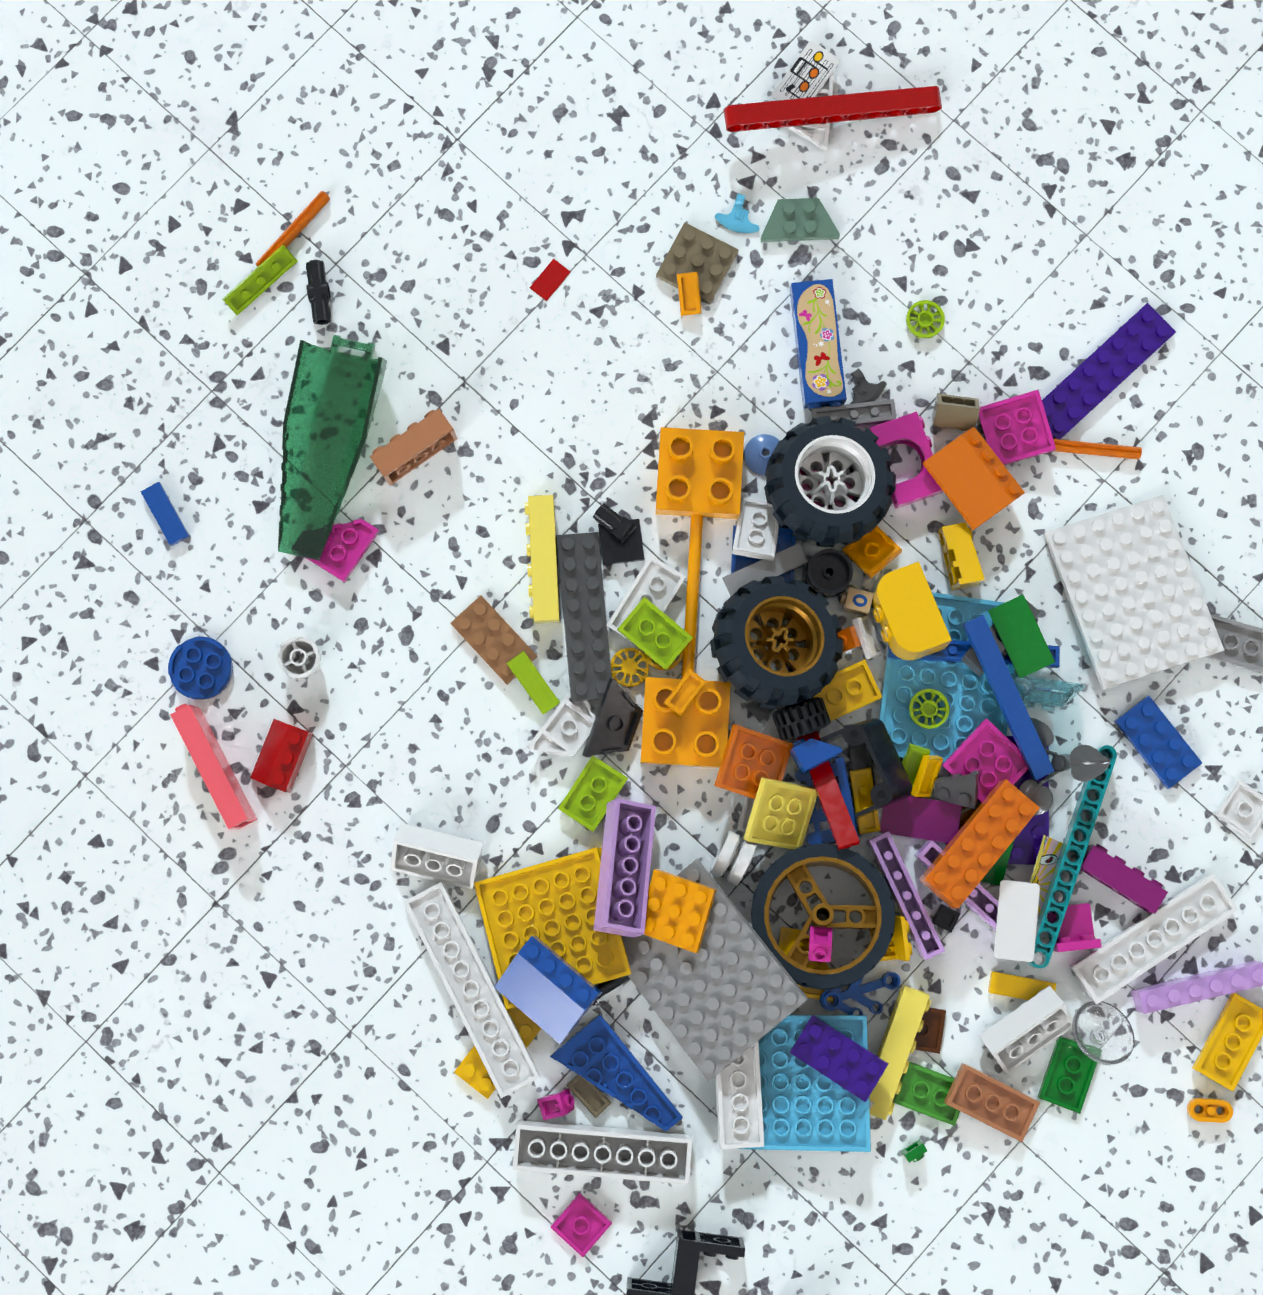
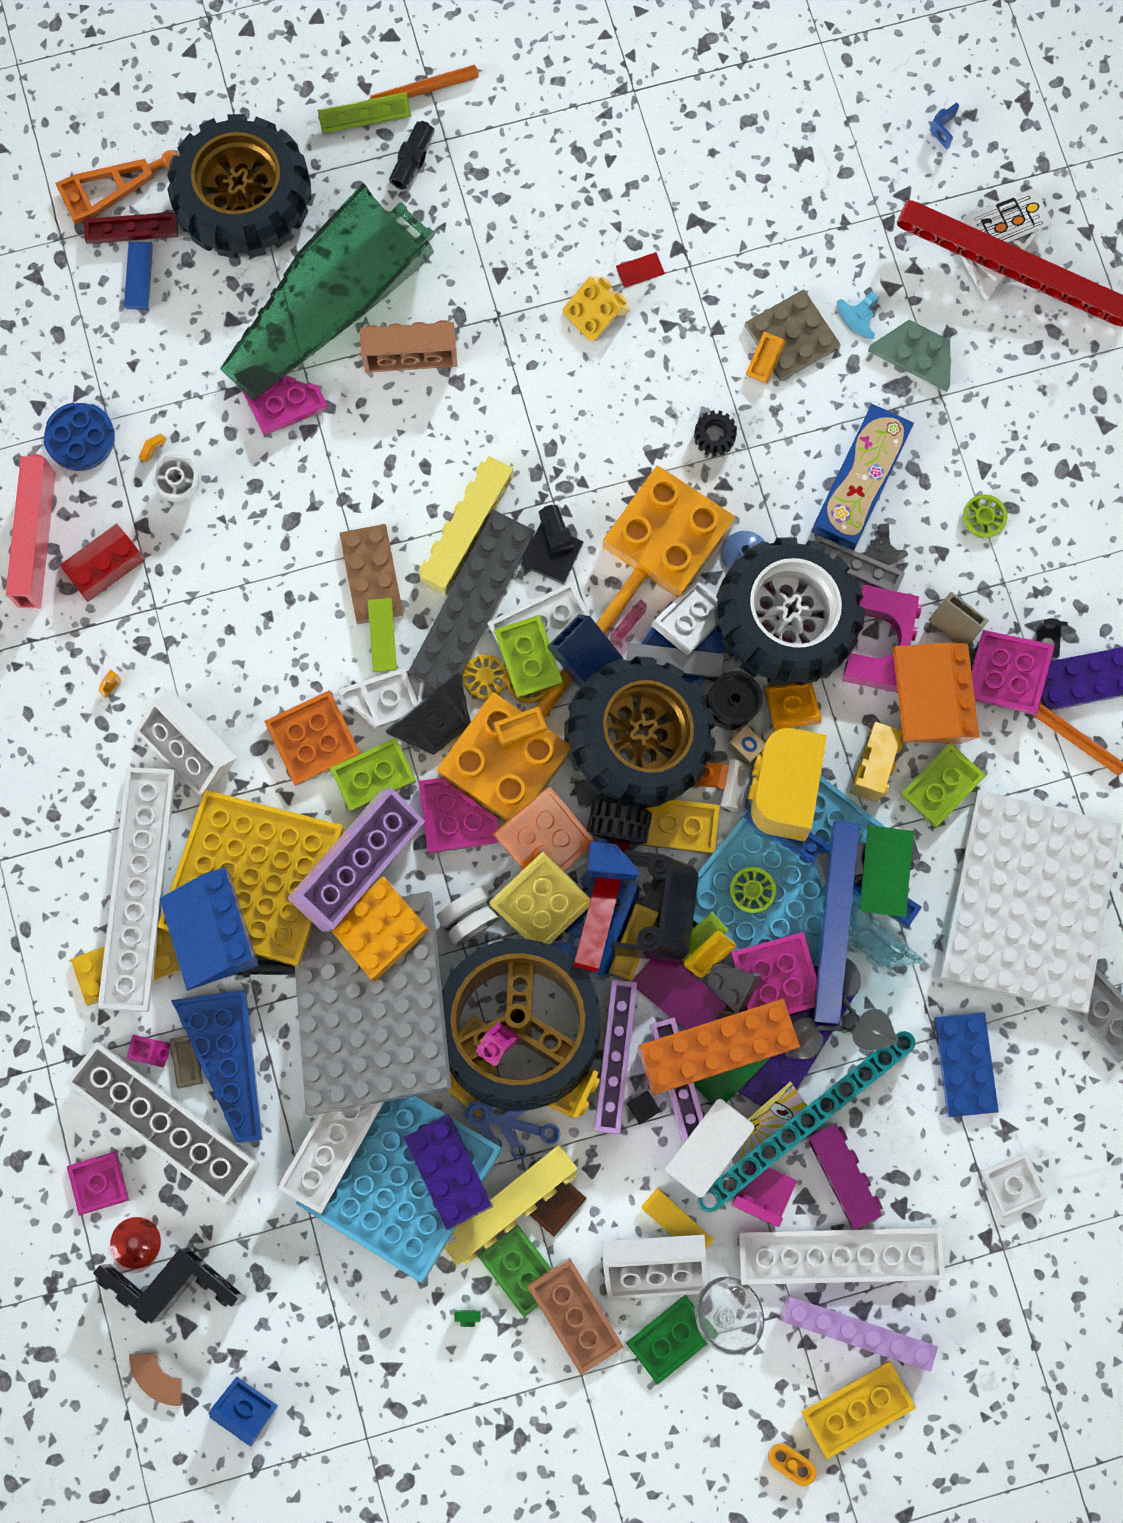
camera: 30 degrees right, 5 degrees down
(79, 483) = (77, 200): none -> orange plate
(135, 479) = (130, 227): none -> dark red plate
(183, 365) = (259, 219): none -> black wheel
(262, 643) = (150, 446): none -> light orange tile
(348, 846) = (109, 683): none -> light orange tile
(529, 793) = (312, 738): none -> orange plate
(535, 330) = (595, 307): none -> yellow bracket
(636, 1239) = (148, 1242): none -> clear red dish
(674, 789) = (453, 818): none -> dark pink plate
(686, 387) = (715, 420): none -> black tyre
(694, 603) = (583, 649): none -> dark blue brick
(707, 33) = (941, 119): none -> blue bracket
(712, 559) = (628, 622): none -> clear pink tile
(1017, 544) = (943, 785): none -> lime plate
(1026, 377) = (1051, 629): none -> black bracket

